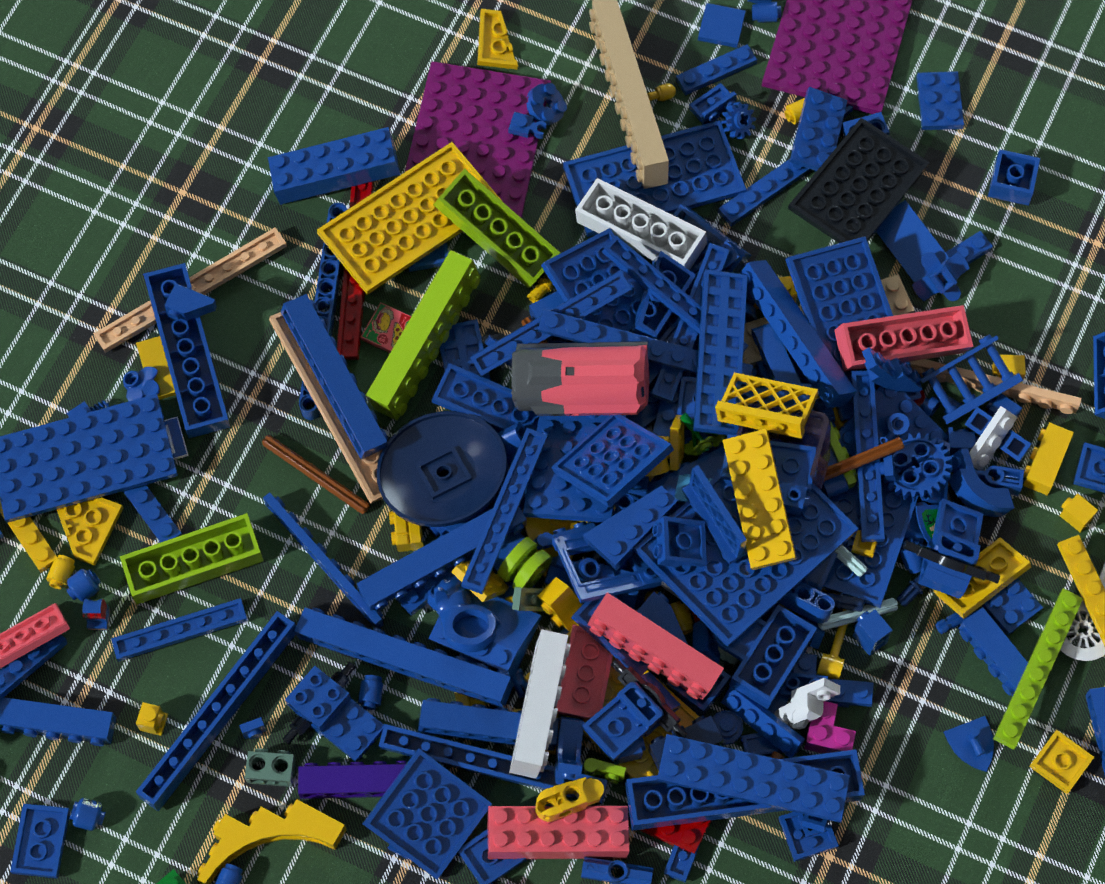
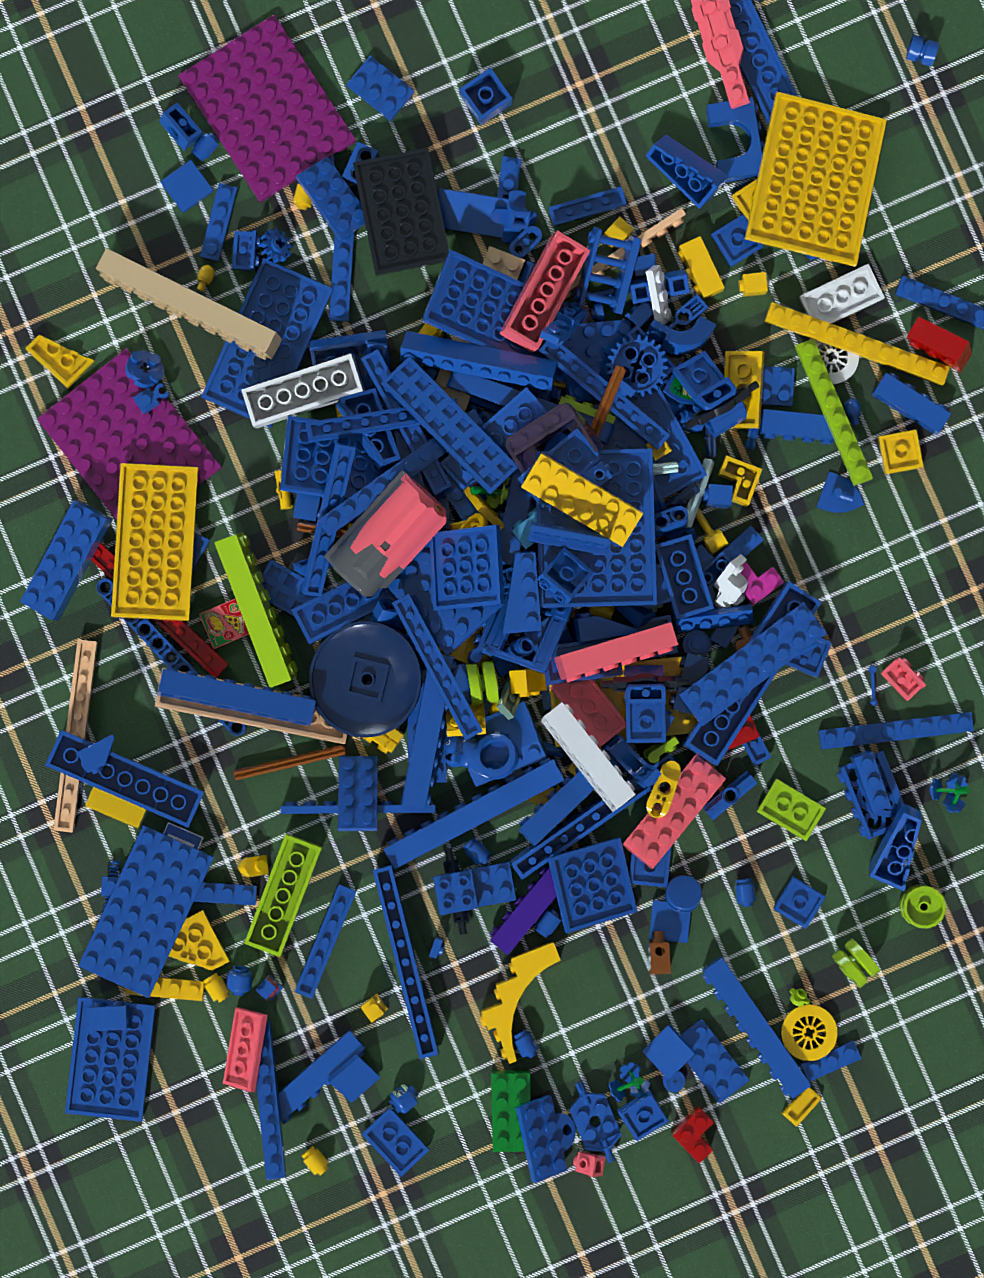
camera: 50 degrees left, 20 degrees up
(71, 753) = (353, 1078): none -> blue tile
(143, 385) = (124, 826): blue plate -> none
(197, 515) = (254, 866): none -> yellow plate
(268, 774) = (477, 961): sand green brick -> none
(335, 546) = (358, 793): none -> blue plate
(357, 807) = (548, 922): none -> blue brick
(495, 228) = (218, 491): lime brick -> none
(761, 417) = (524, 448): yellow fence -> none
(893, 430) = (600, 356): blue plate -> none
(909, 640) = (743, 475): none -> yellow brick
(929, 301) = (525, 242): none -> blue plate
(1007, 328) = (587, 206): none -> blue plate
(1056, 689) = (853, 410): none -> blue cylinder

